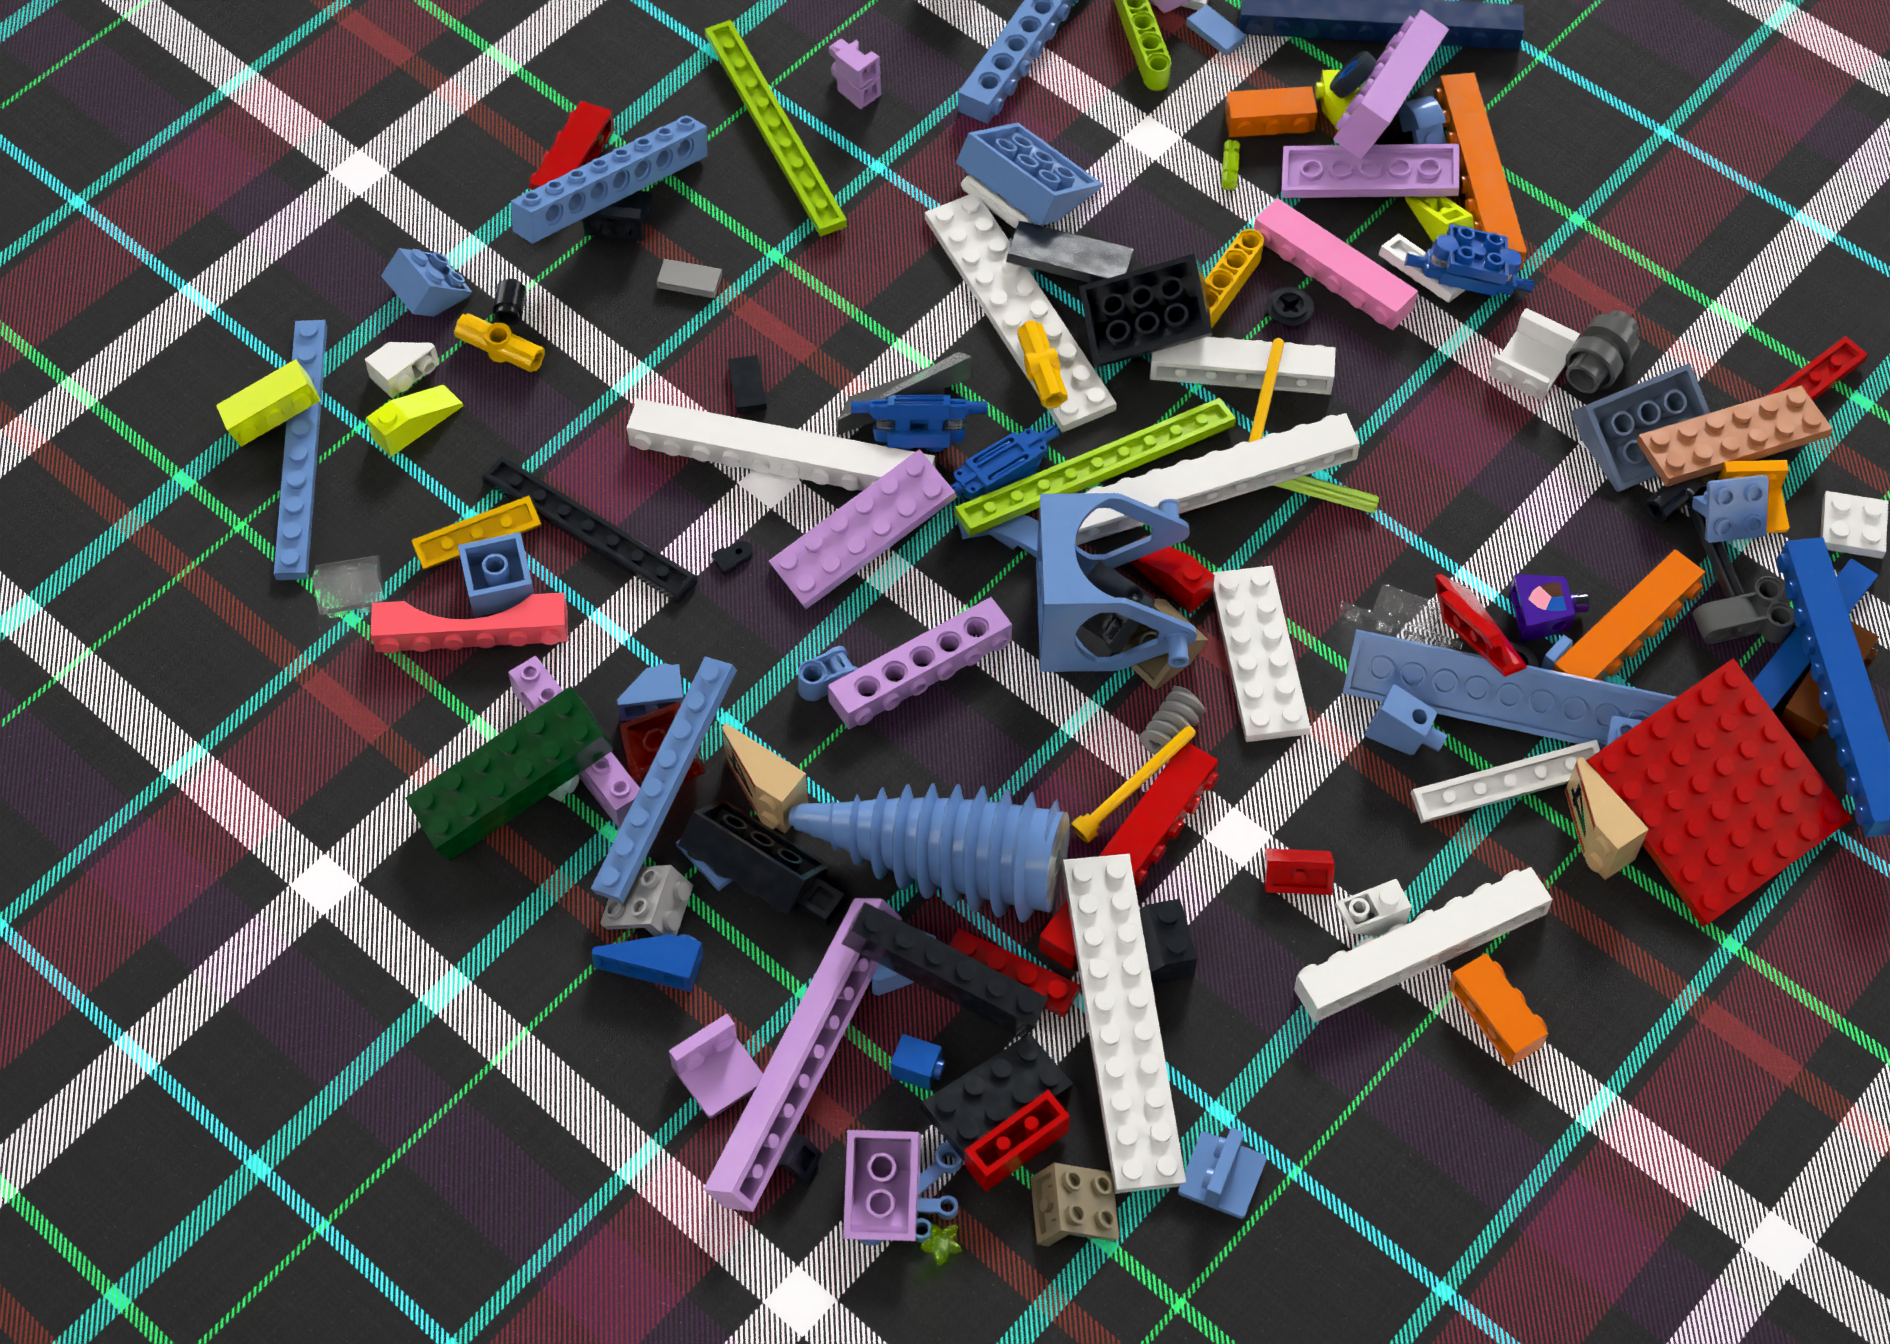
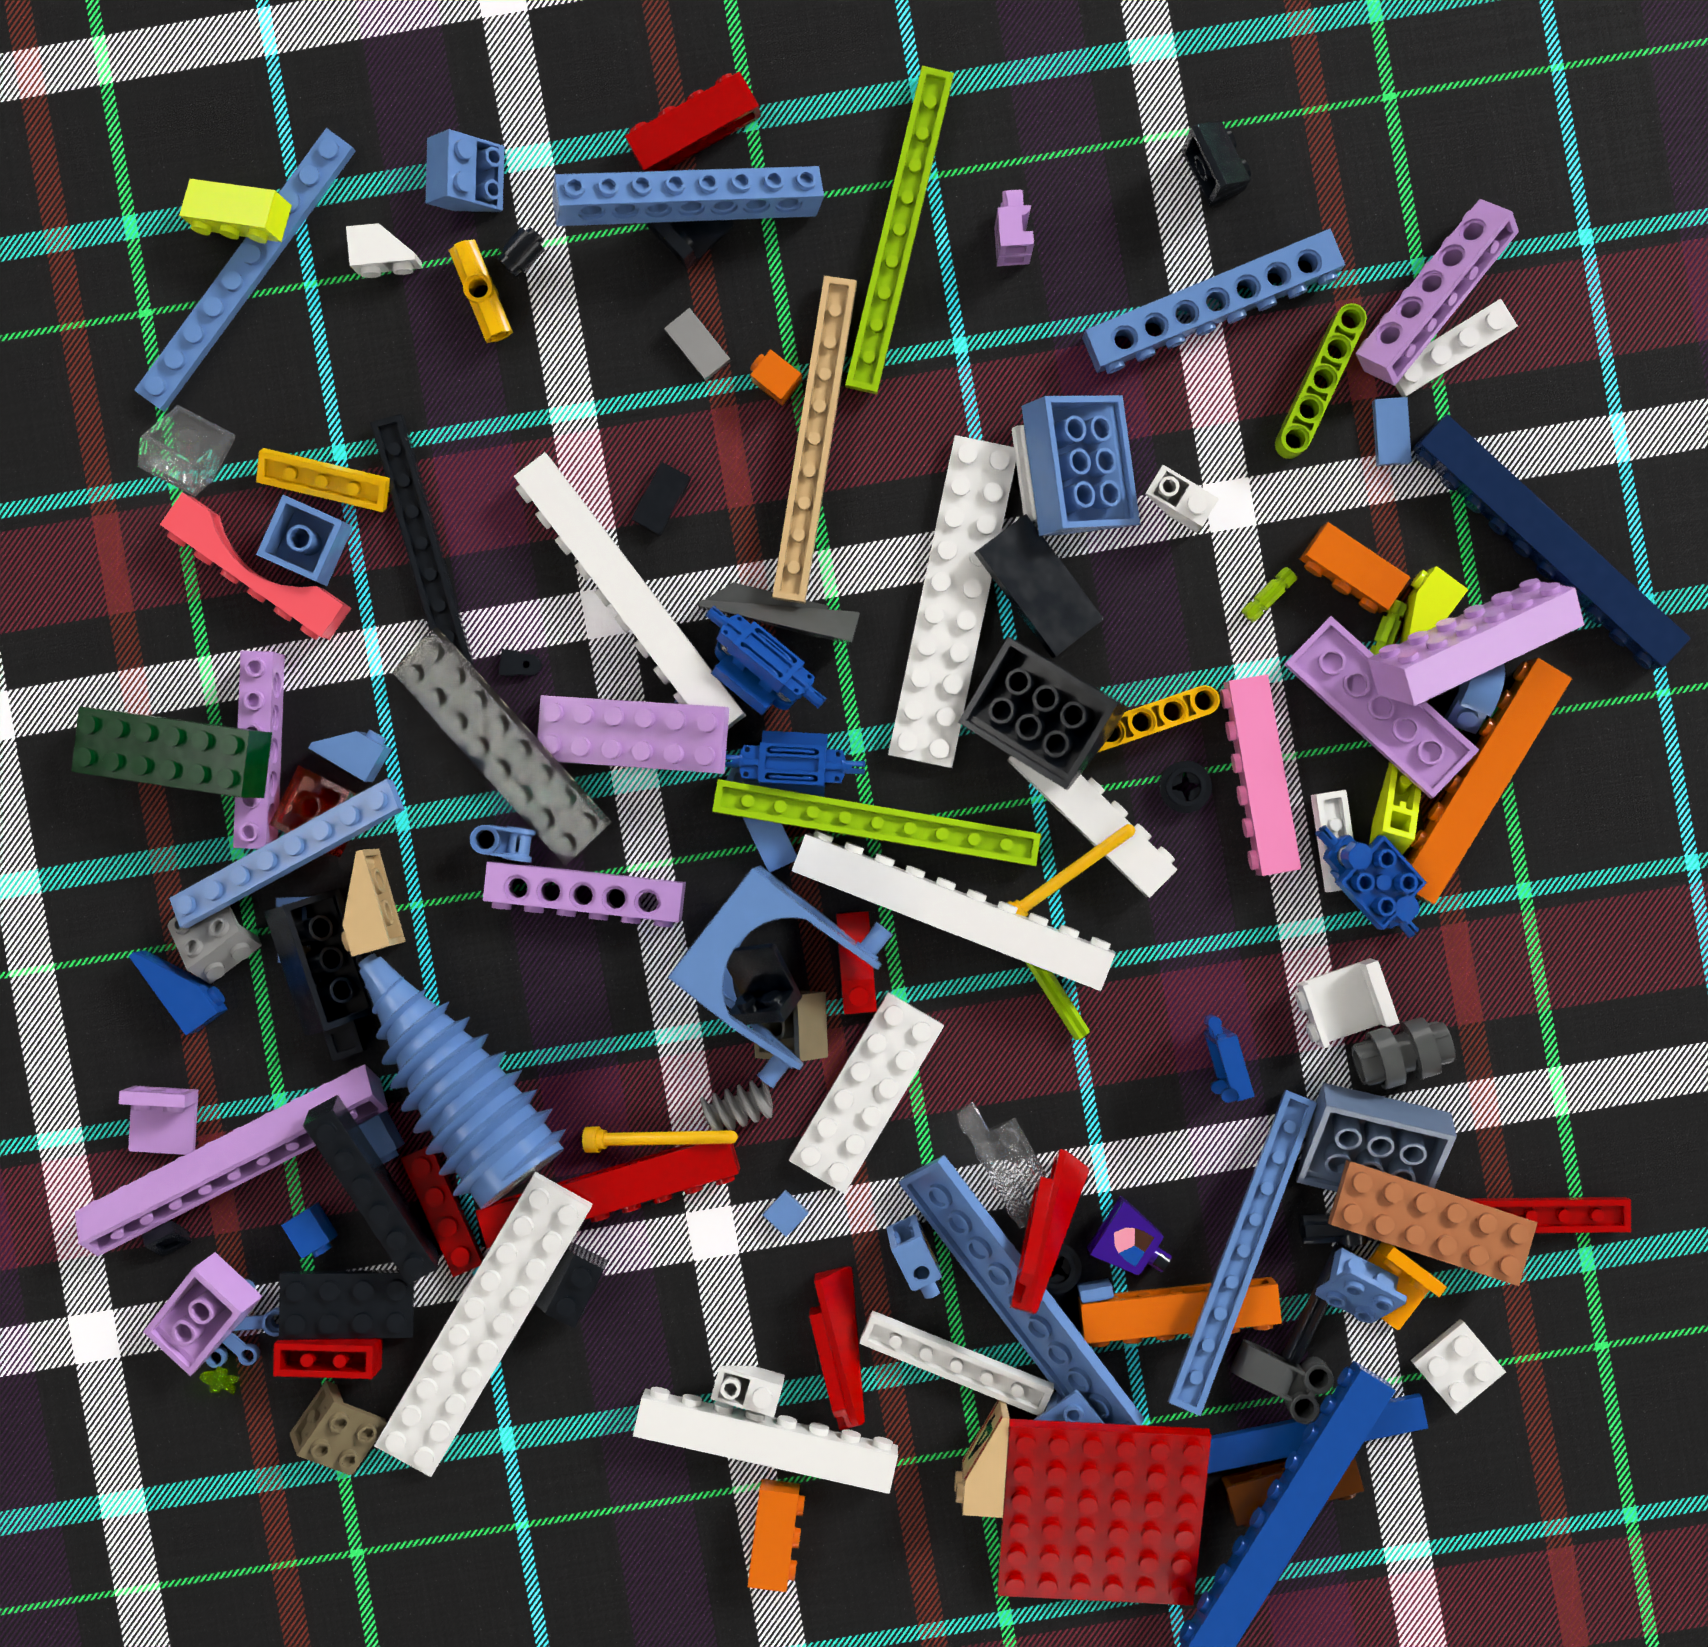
camera: 40 degrees right, 30 degrees up
(410, 417) = (354, 314): neon yellow slope -> none
(765, 257) = (775, 376): none -> orange brick
(768, 610) = (501, 746): none -> clear smoke plate
(830, 276) = (814, 439): none -> tan plate
(1042, 364) = (912, 688): yellow piece -> none
(1119, 144) = (1181, 498): none -> white slope
(1223, 1173) = (462, 1492): medium blue bracket -> none
(1280, 777) = (785, 1213): none -> medium blue tile
(1299, 871) = (729, 1302): red panel -> none
(1325, 127) = (1389, 626): none -> lime axle
(1353, 74) = (1448, 606): black bush -> none
(1407, 841) = (837, 1344): none -> red wedge
(1490, 432) = (1227, 1062): none -> blue piece
(1631, 546) = (1242, 1253): none -> medium blue plate

